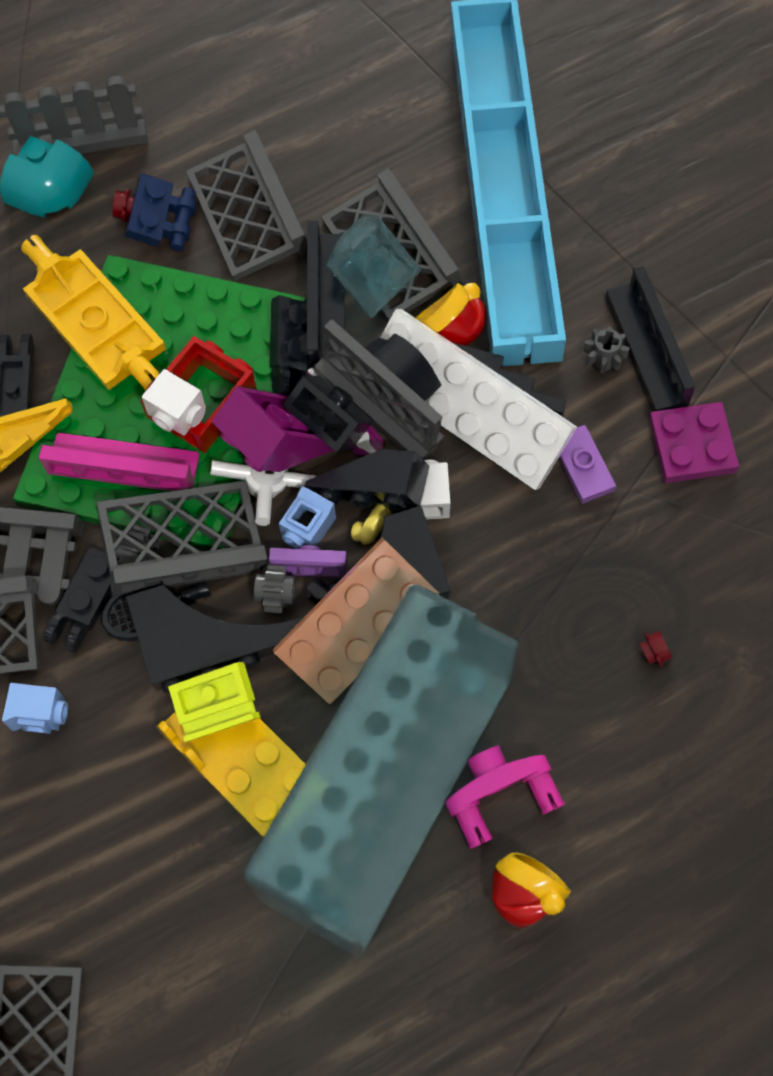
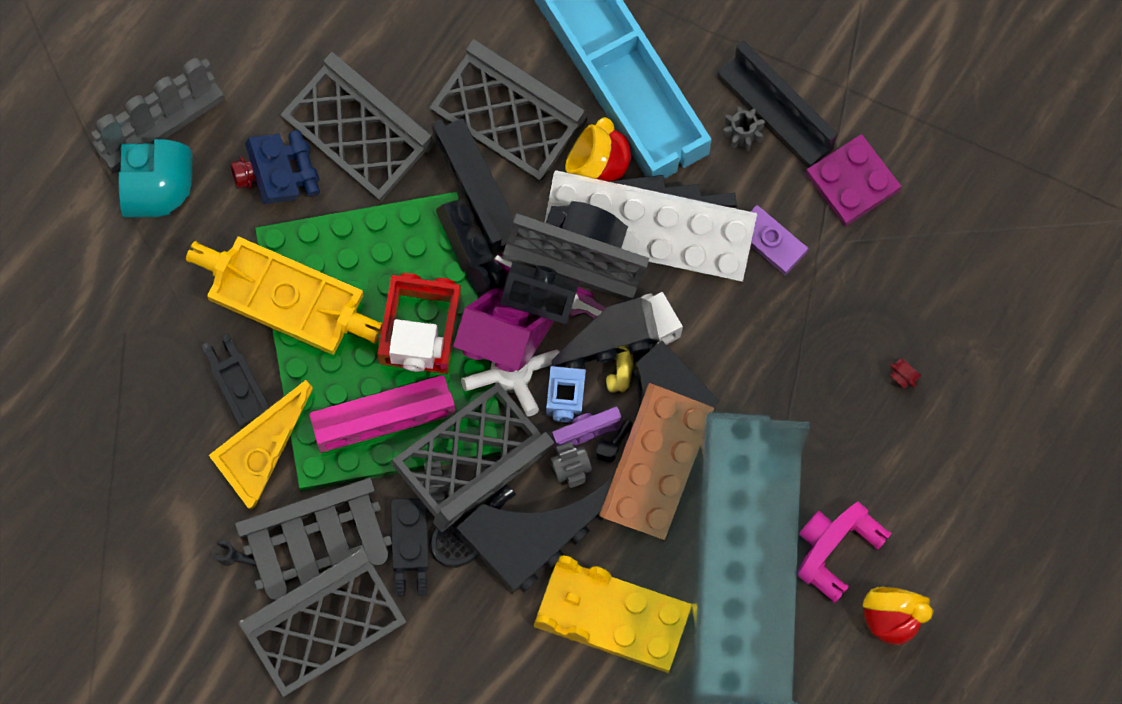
camera: 30 degrees left, 5 degrees up
(34, 708) = (425, 654): light blue window -> none
(214, 701) = (577, 580): neon yellow plate -> none
(371, 264) = (504, 136): clear light blue slope -> none

